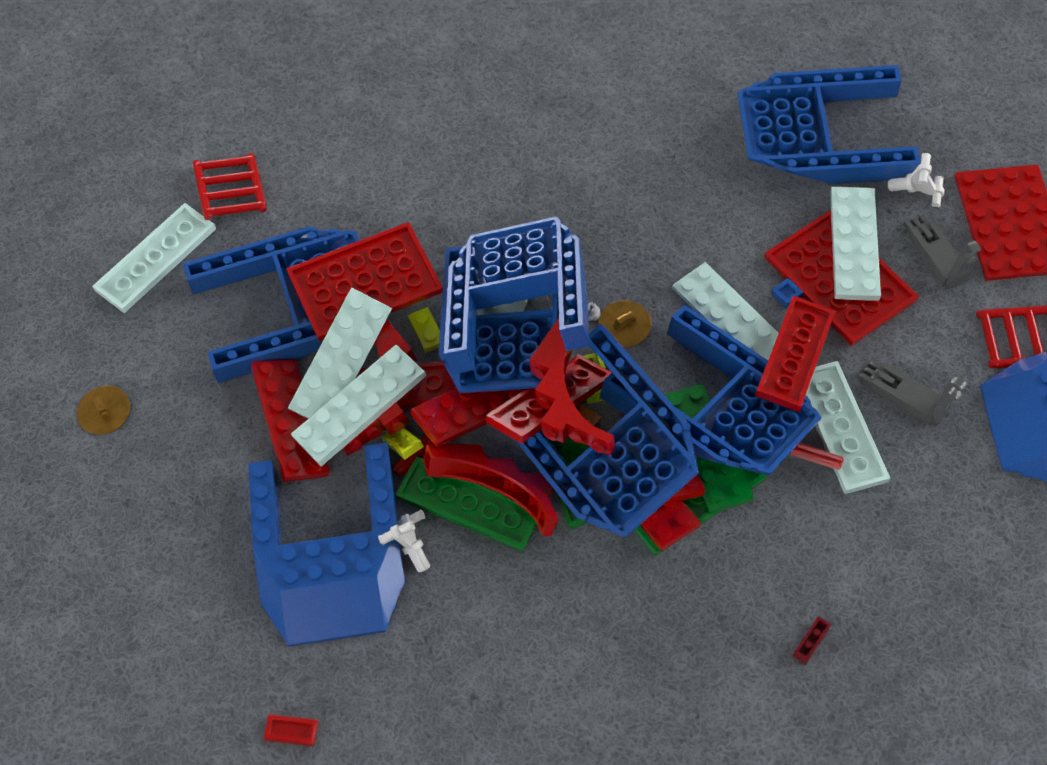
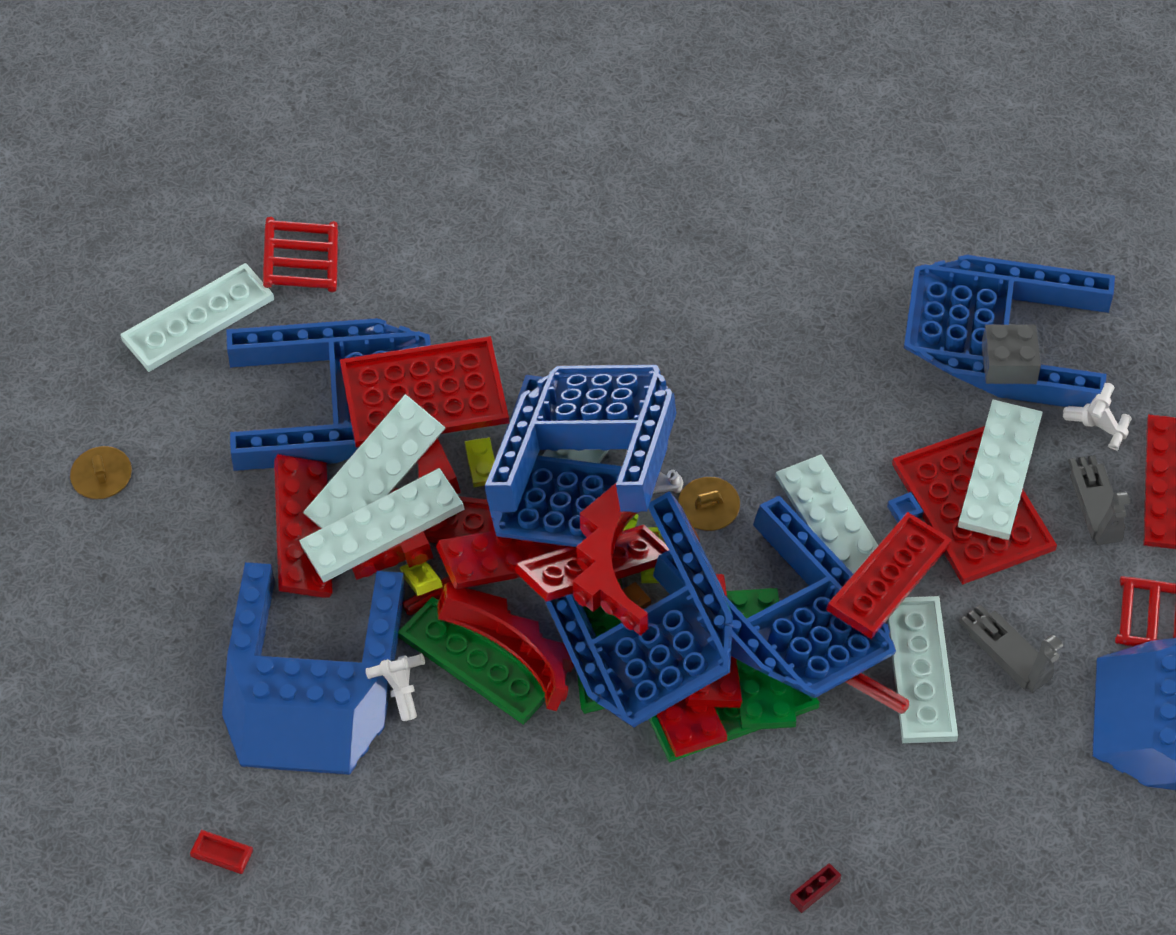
camera: 10 degrees right, 5 degrees down
(839, 146) = (1011, 354): none -> dark grey brick

